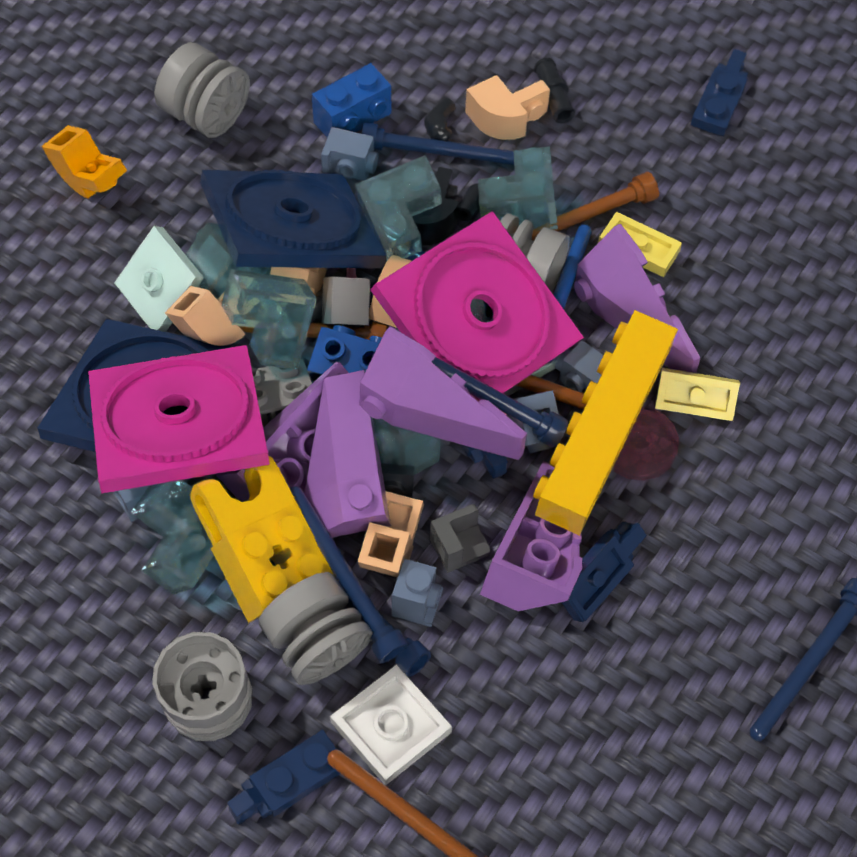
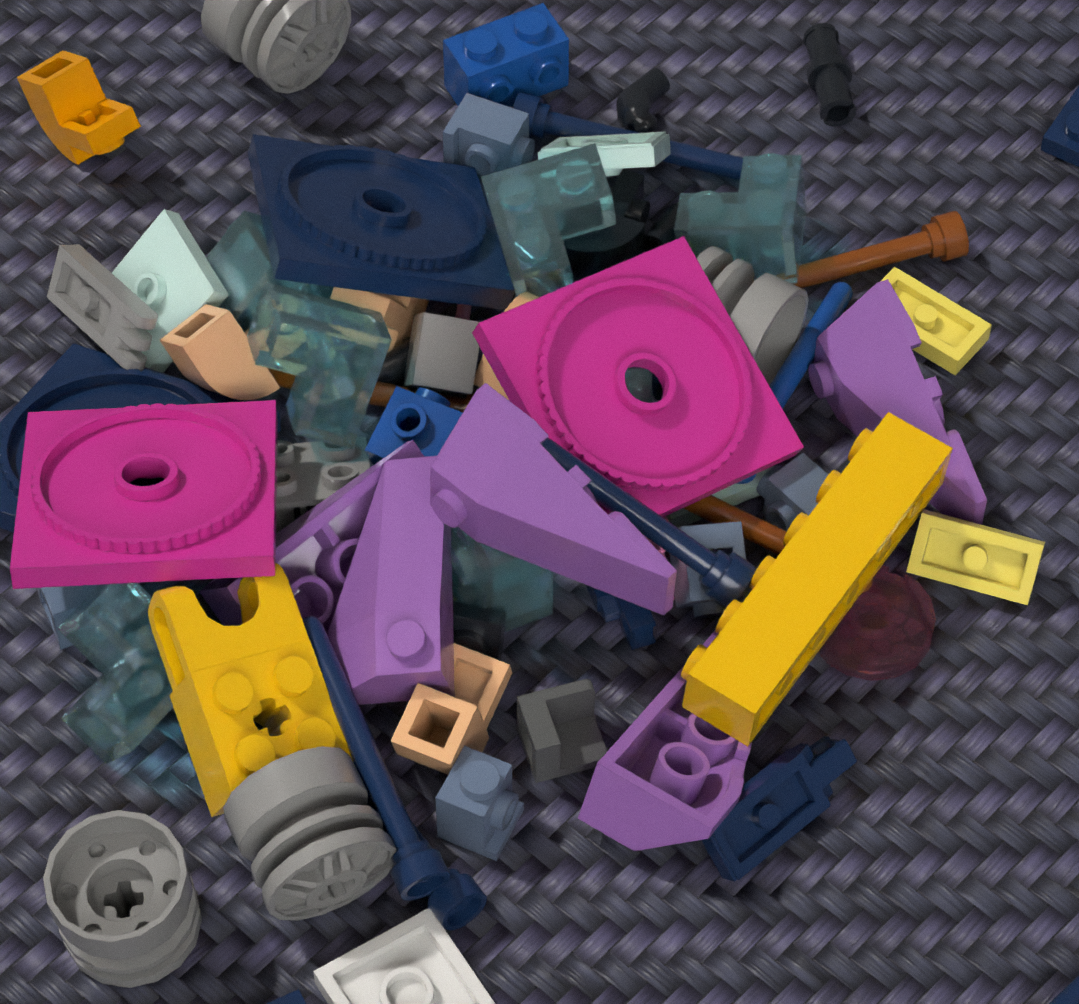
camera: 10 degrees right, 5 degrees down
(122, 293) = (102, 306): none -> light grey hinge
(438, 154) = (617, 150): none -> light aqua plate
(503, 113) = (745, 102): light nougat brick -> none

